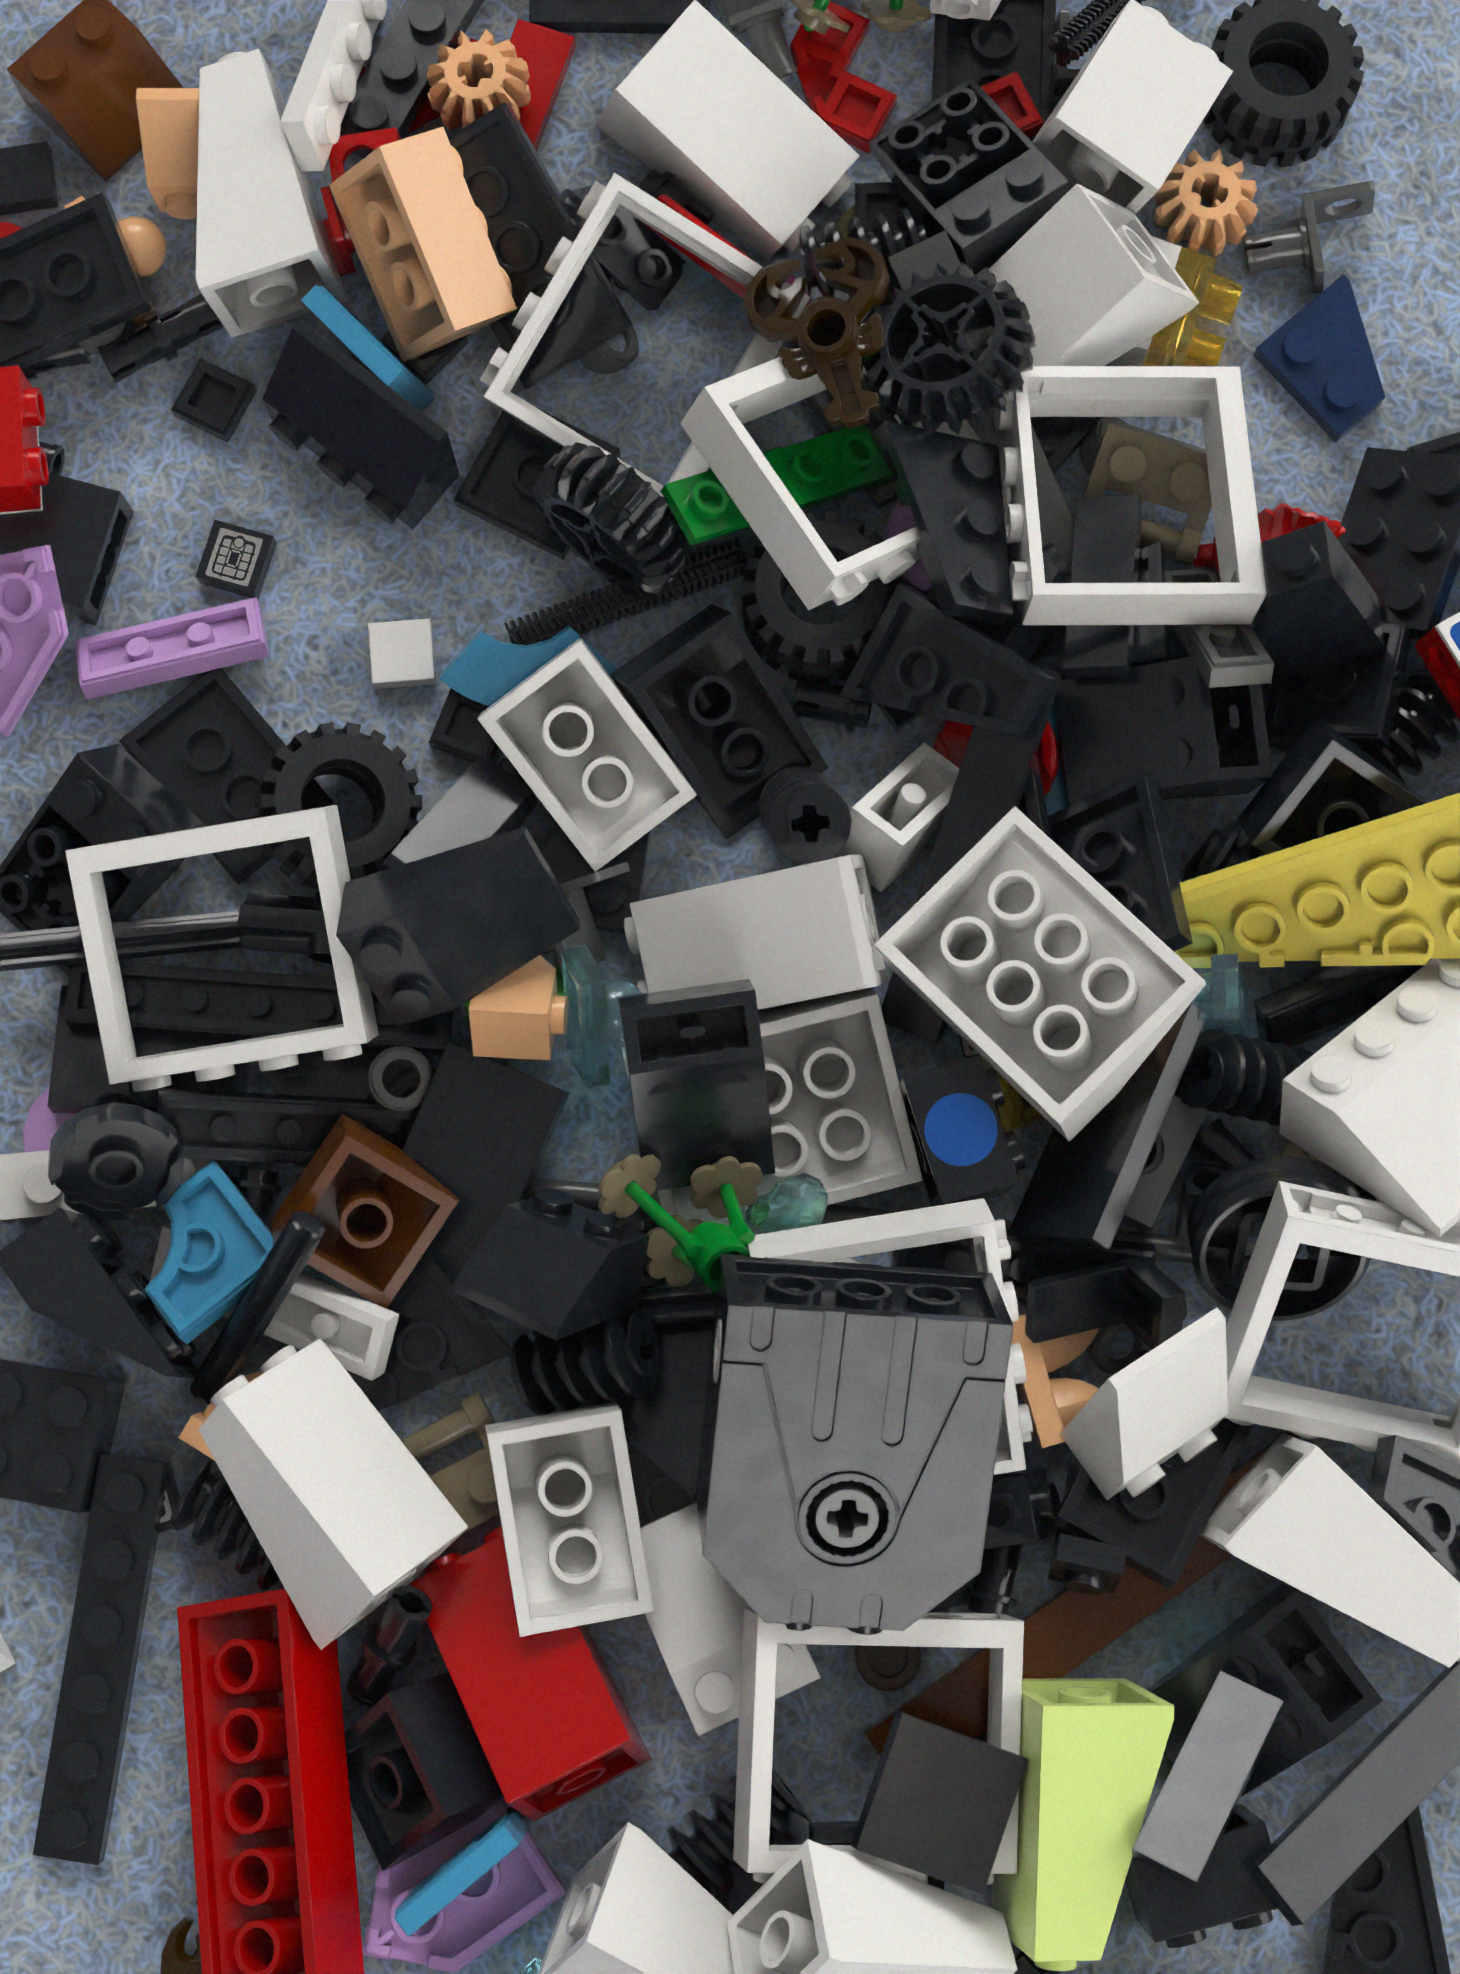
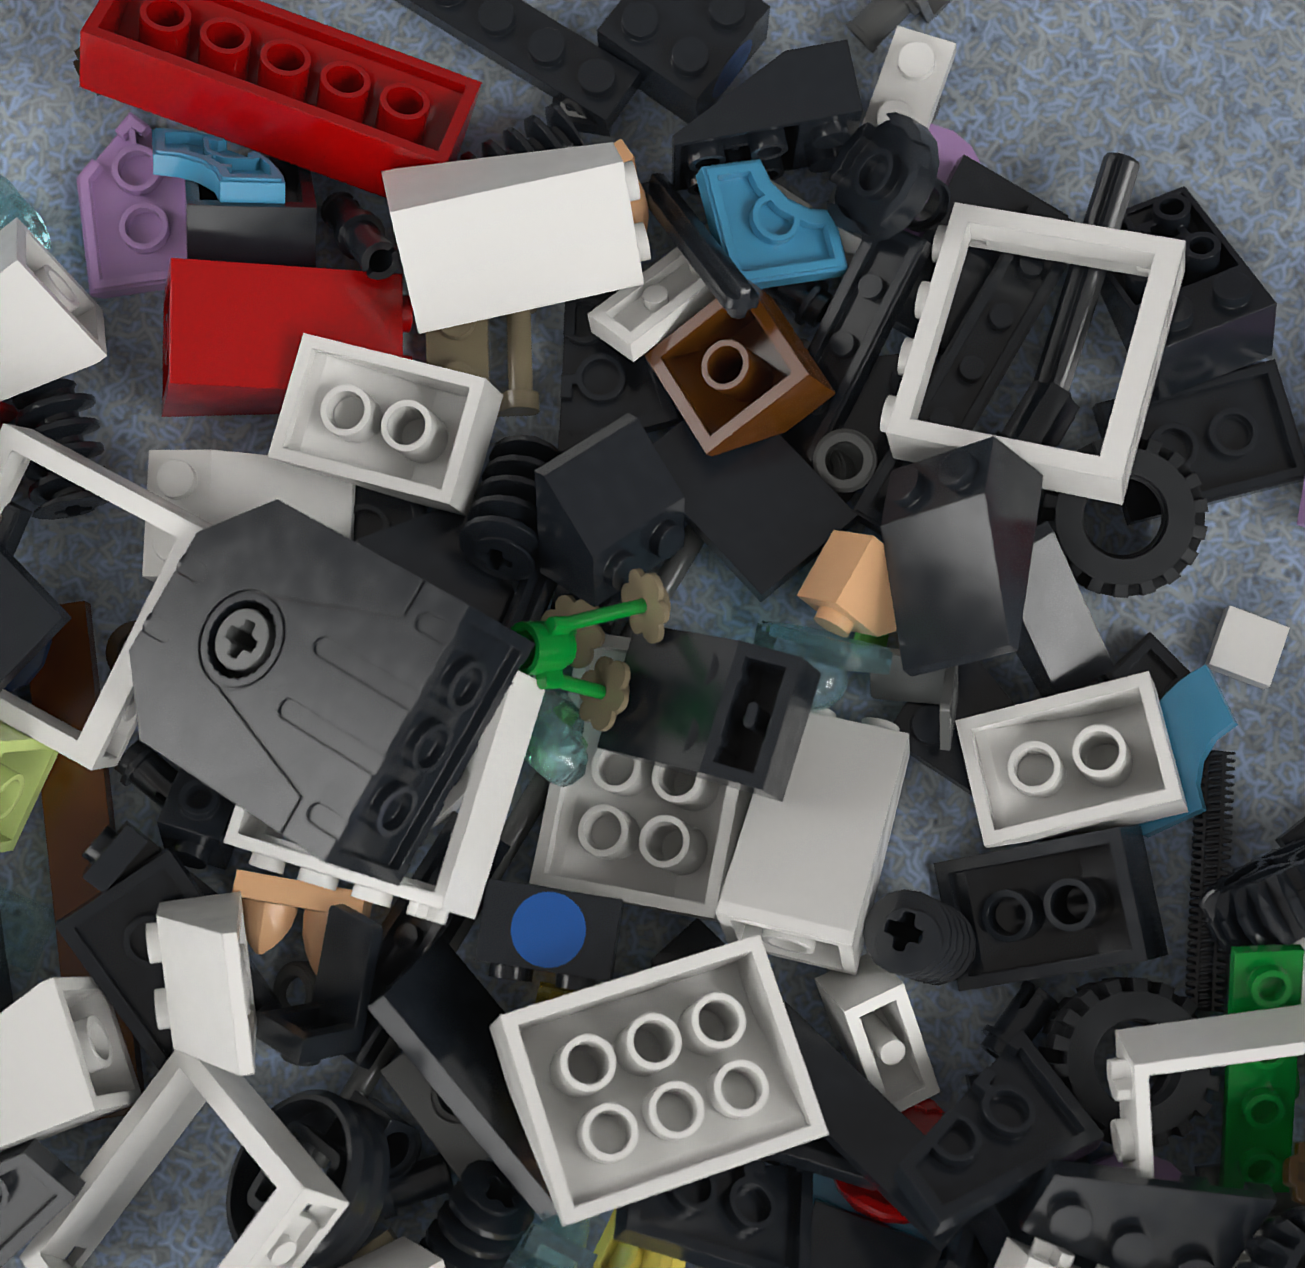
camera: 115 degrees right, 0 degrees up
(388, 1805) = (208, 162): none -> dark azure tile
(461, 1870) = (140, 201): dark azure tile -> none

